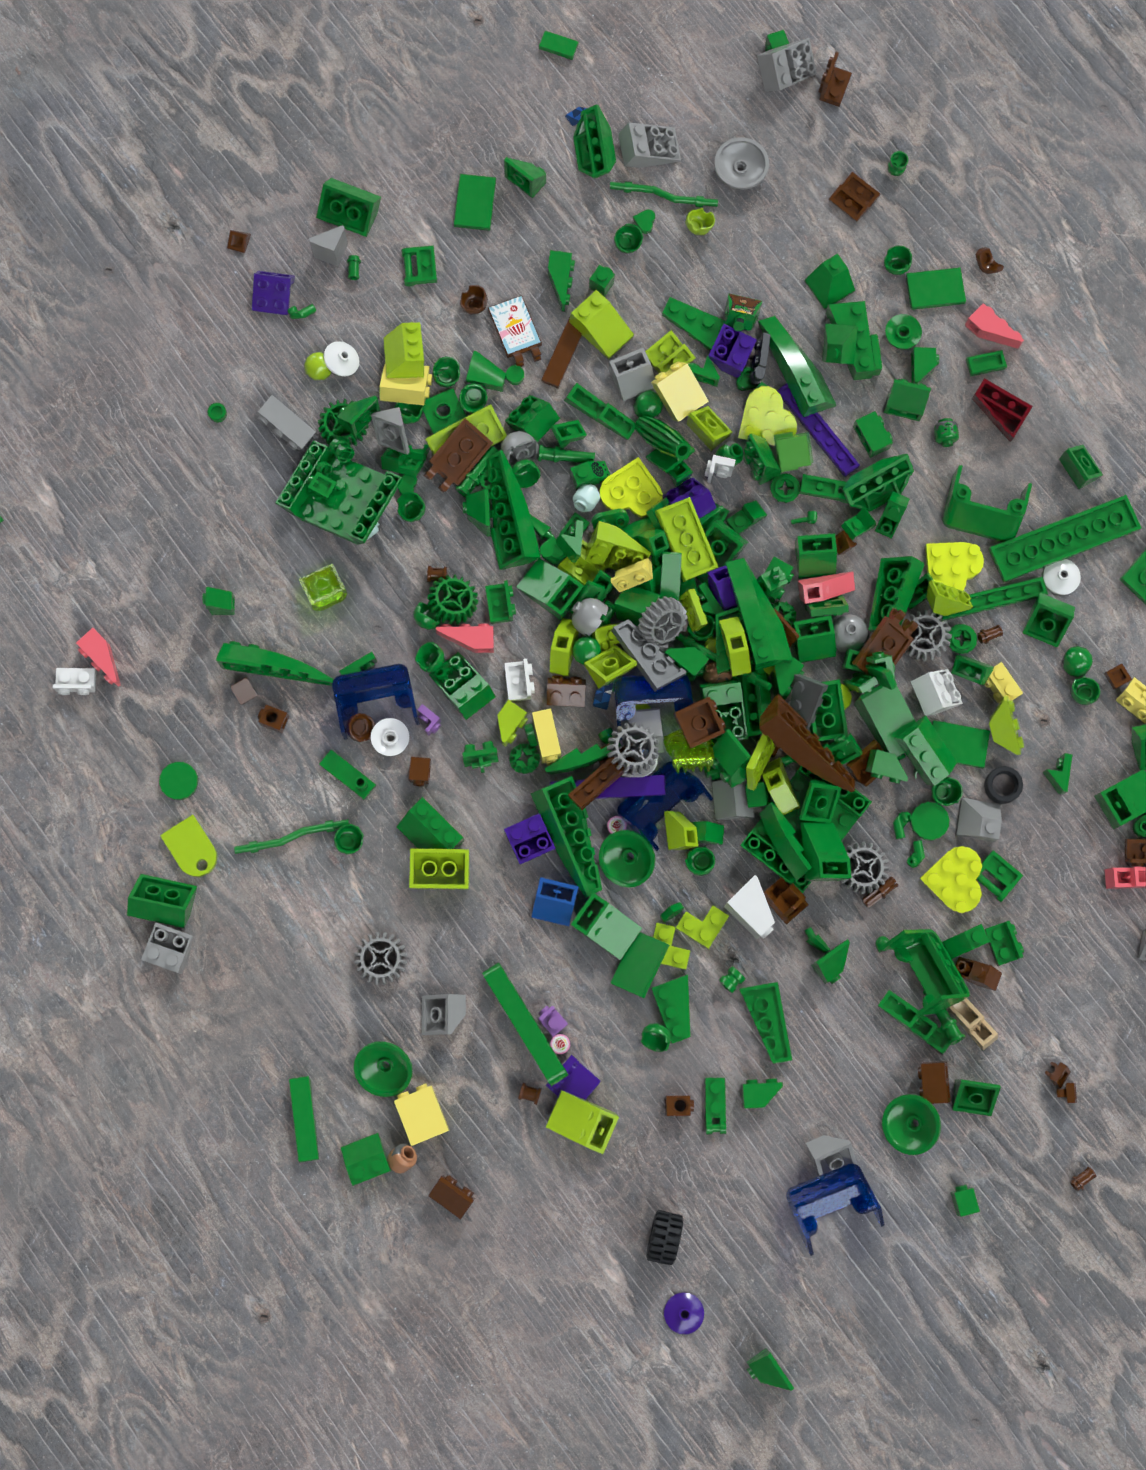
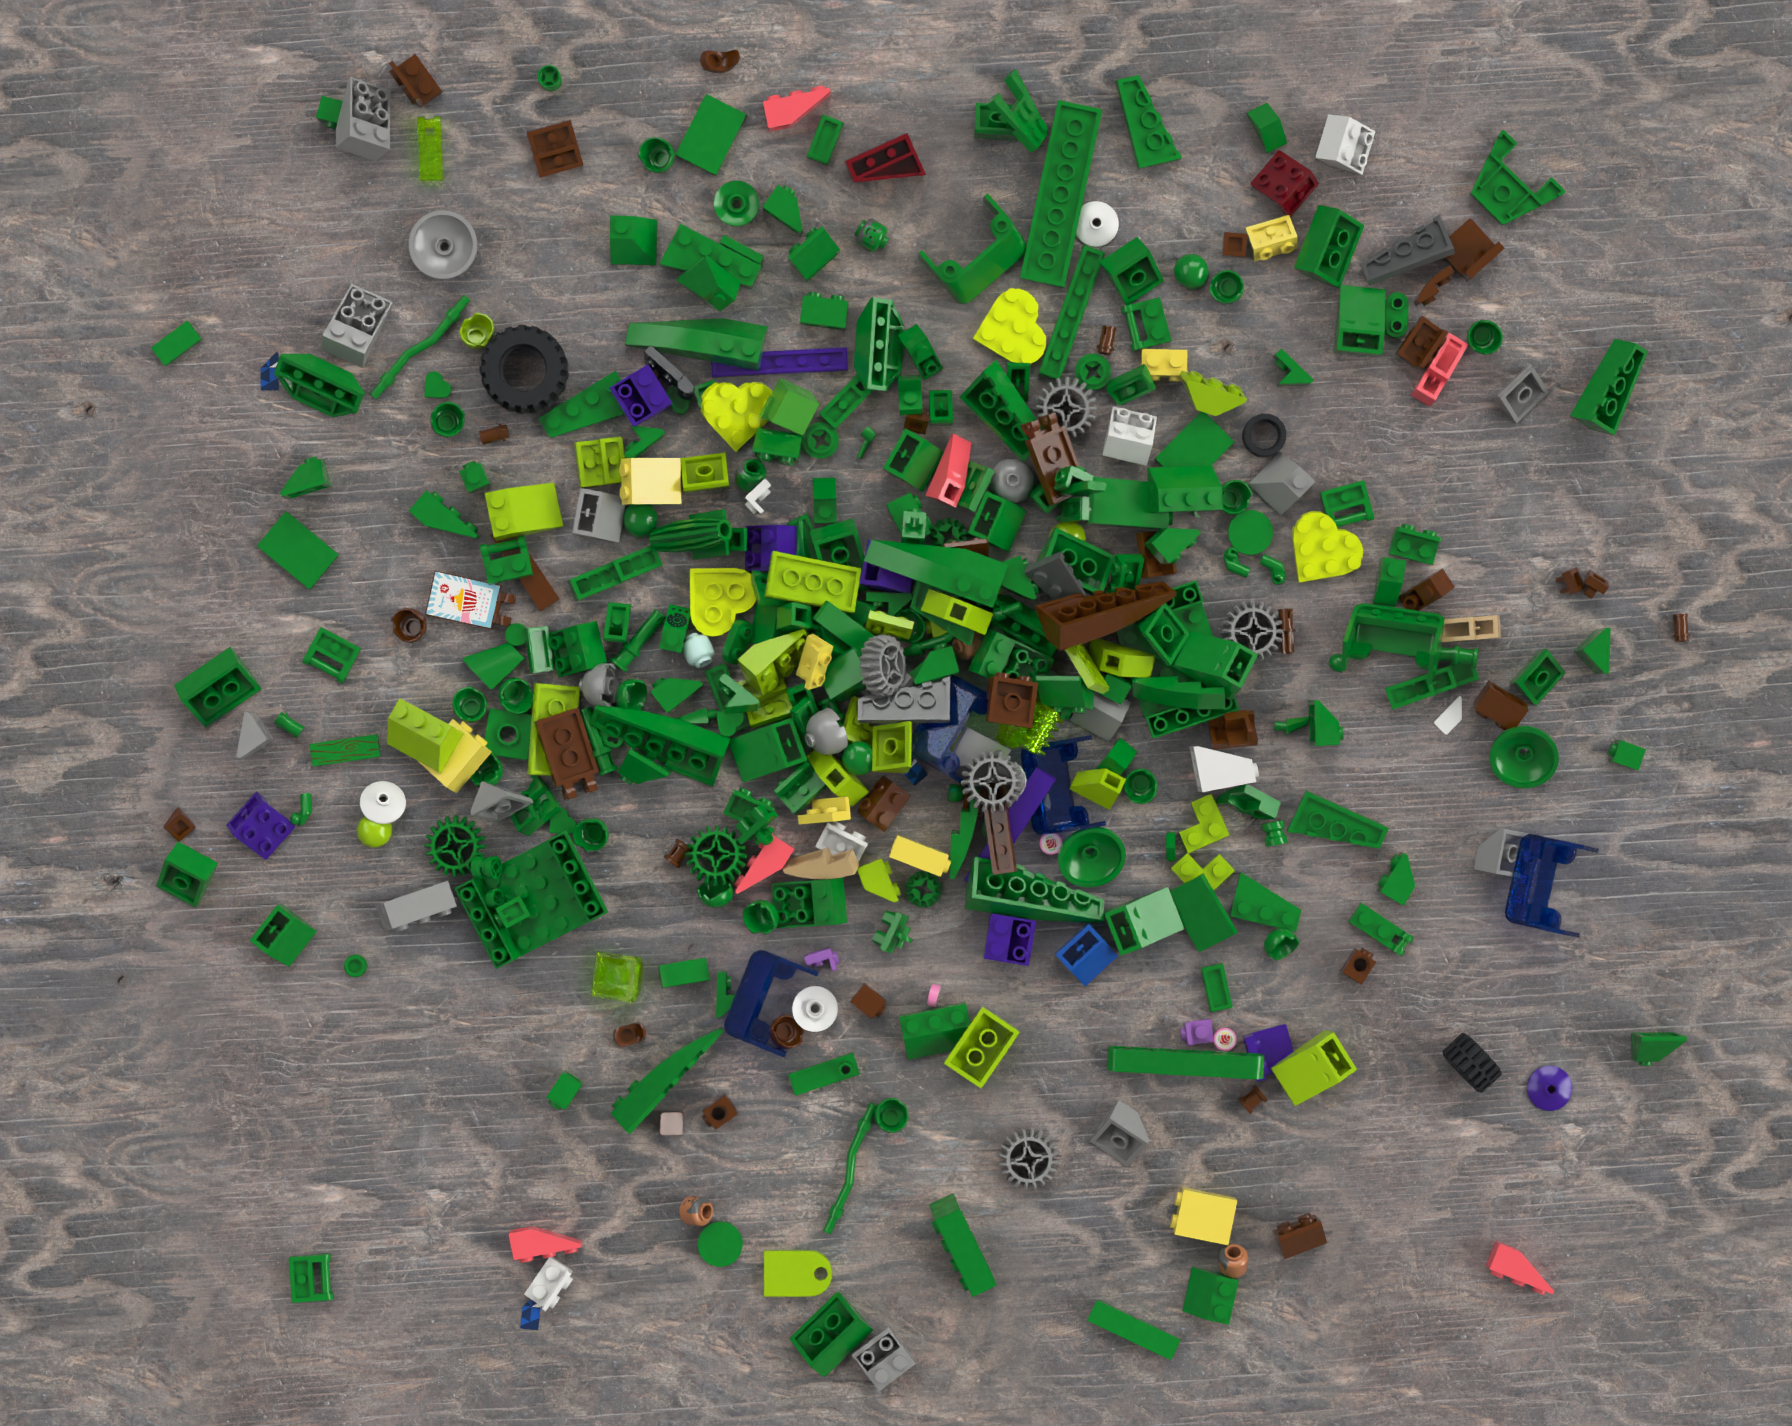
camera: 50 degrees left, 10 degrees up
(43, 684) = (530, 1316): none -> sticker
(191, 746) = (696, 1210): none -> nougat head
(206, 349) = (283, 935): none -> green slope
(208, 264) = (186, 874): none -> green slope
(285, 951) = (962, 1245): none -> green wedge
(288, 623) = (629, 1034): none -> reddish brown hair
(356, 631) = (683, 973): none -> green slope
(358, 414) = (462, 829): green slope -> none
(360, 314) = (345, 750): none -> green tile
(379, 1077) = (1143, 1231): green dish -> none
(454, 814) = (934, 995): none -> bright pink tile
(491, 614) = (759, 829): none -> green hips
(495, 676) = (823, 865): none -> tan slope
(514, 394) = (539, 649): none -> tile
(530, 735) = (904, 868): green tile -> none
(534, 653) = (827, 811): none -> light yellow bracket
(535, 1373) = (1512, 1263): none -> coral slope
(538, 626) = (800, 787): none -> green bracket
(547, 500) = (673, 691): none -> green slope
(556, 338) = (508, 567): none -> green plate
(593, 1013) = (1216, 987): none -> green tile
(642, 278) = (494, 434): none -> reddish brown pin
(696, 243) = (519, 338): none -> black tyre
(741, 312) = (607, 358): green torso -> none
(742, 947) = (1250, 802): none -> green slope
(797, 121) = (430, 149): none -> clear neon green plate
(863, 553) = (940, 407): none -> green slope
(901, 1053) = (1450, 716): none -> white sticker
(947, 599) = (1047, 361): lime slope -> none
(1022, 1125) = (1596, 651): none -> green slope
(1024, 658) = (1153, 323): none -> green plate
(1100, 476) = (1023, 115): none -> green wing

